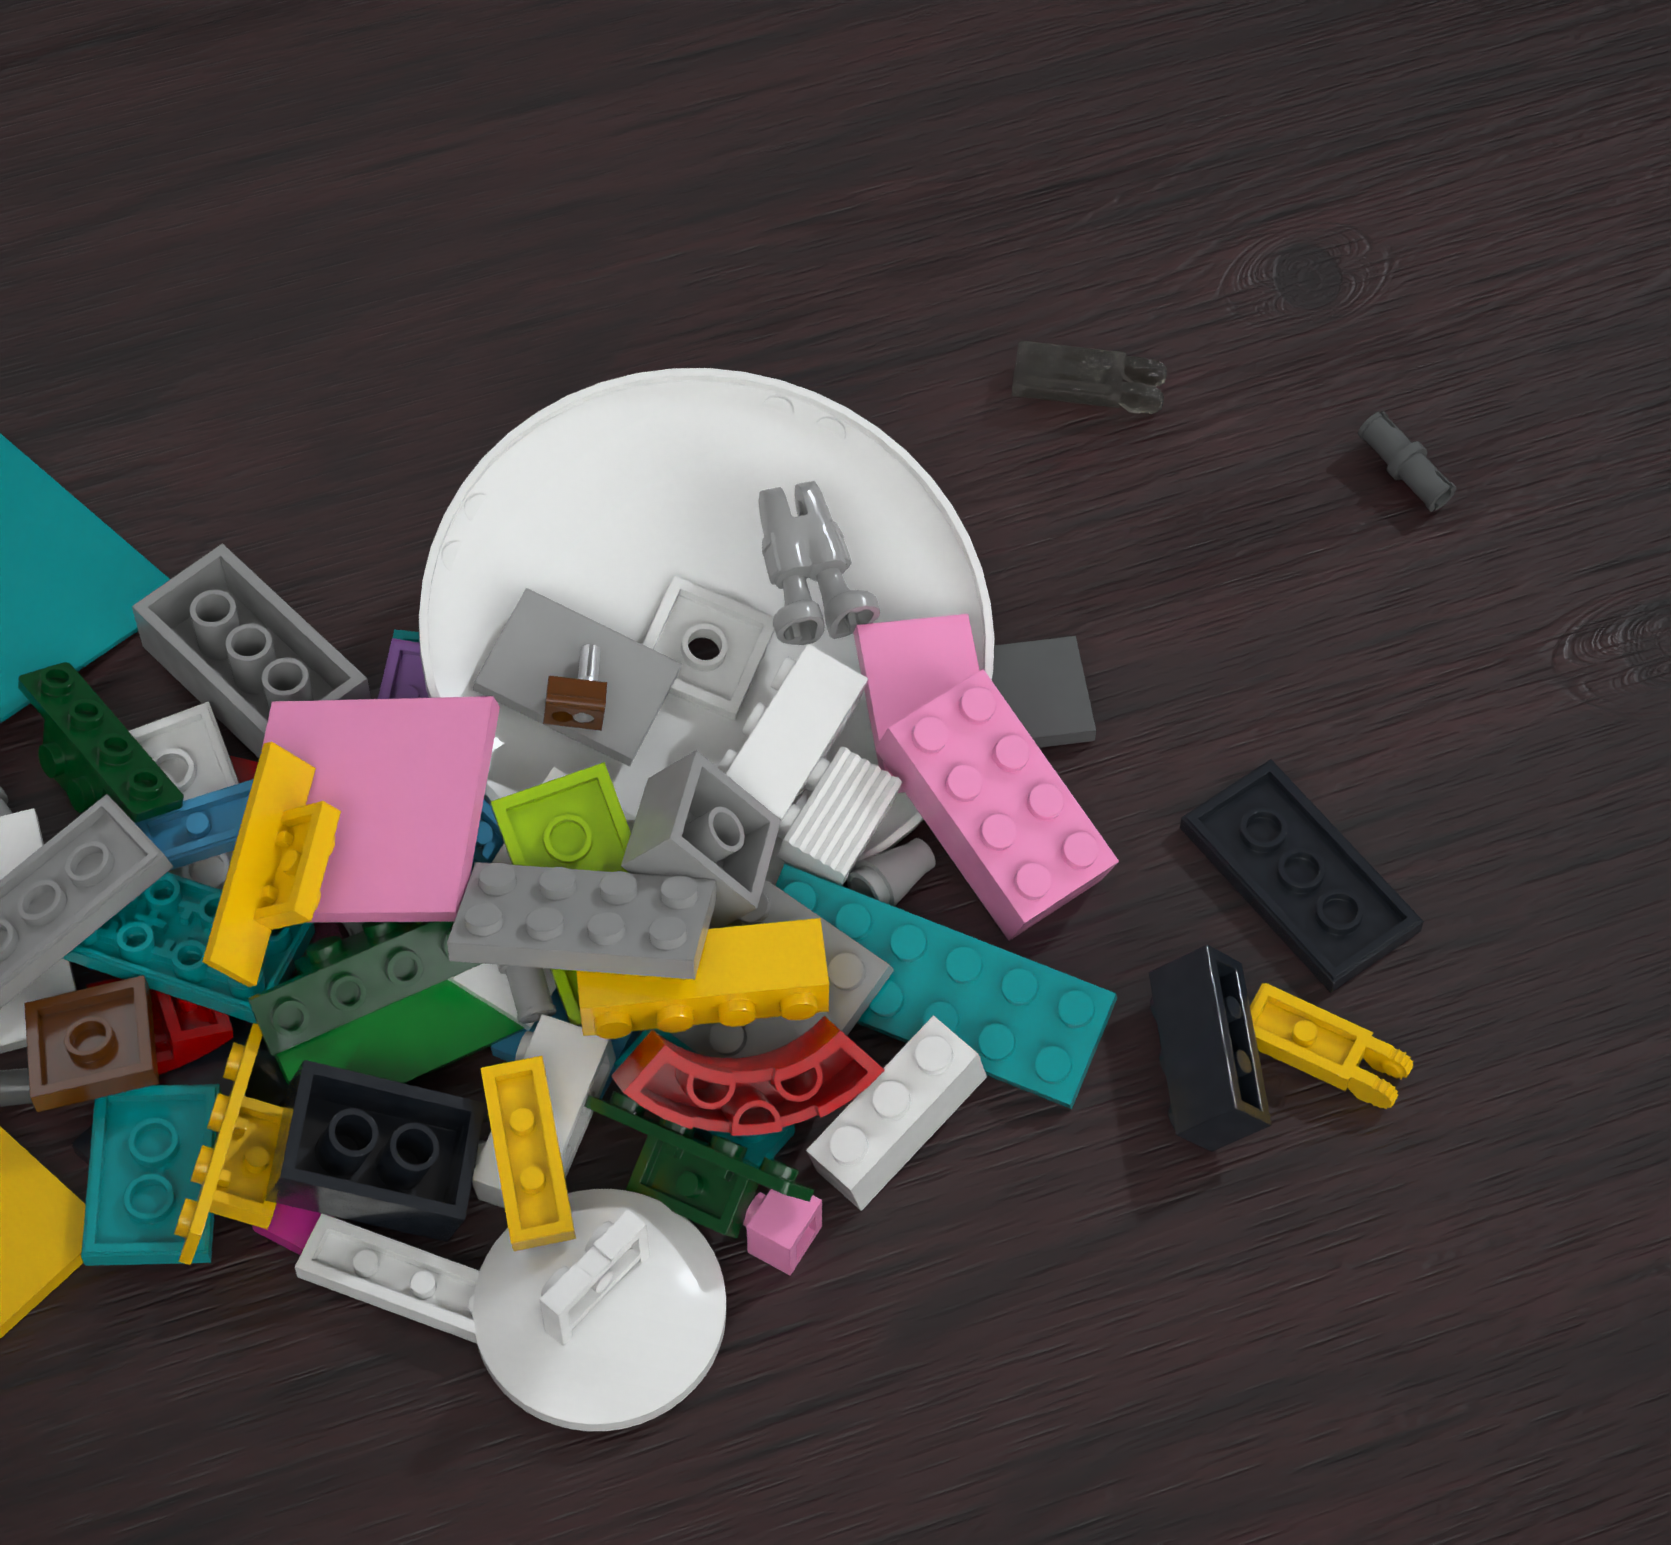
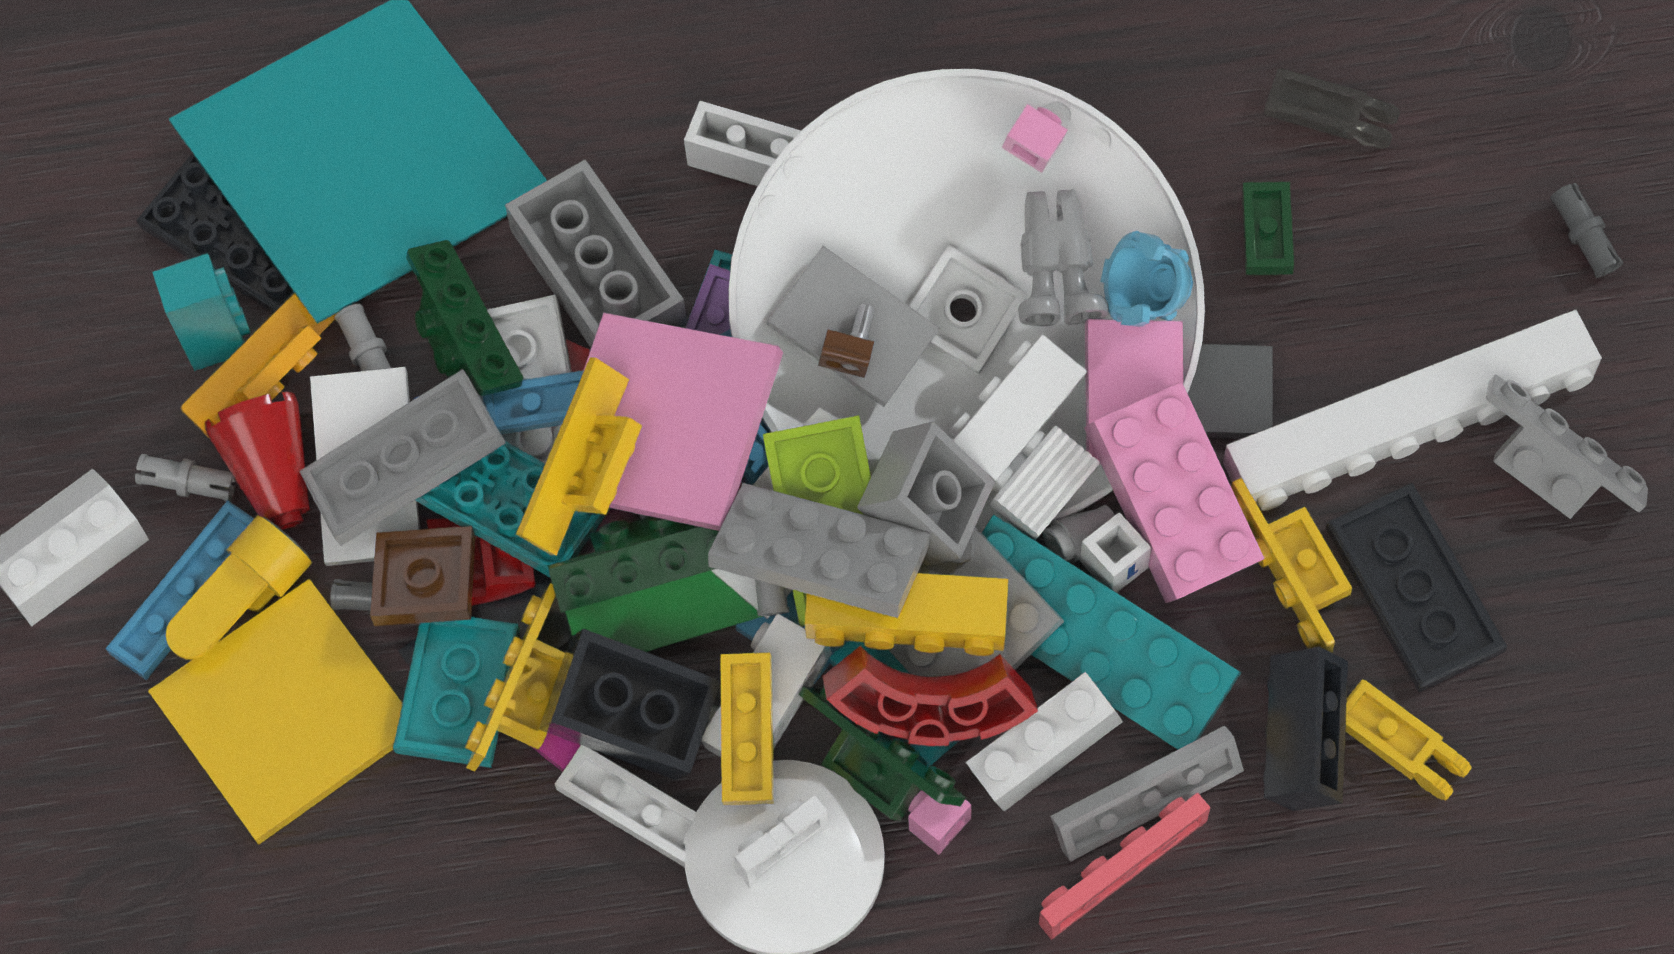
camera: 15 degrees right, 10 degrees up
(395, 506) = (734, 143): none -> white brick
(757, 430) = (1035, 137): none -> bright pink plate
(917, 568) = (1145, 280): none -> medium azure helmet
(940, 884) = (1115, 553): none -> white brick
(1005, 1260) = (1137, 853): none -> coral plate
(1032, 1156) = (1146, 793): none -> light grey plate
(1043, 512) = (1267, 228): none -> dark green plate
(1162, 869) = (1301, 563): none -> yellow bracket
(1253, 680) = (1410, 411): none -> white brick
(1430, 705) = (1556, 459): none -> light grey bracket

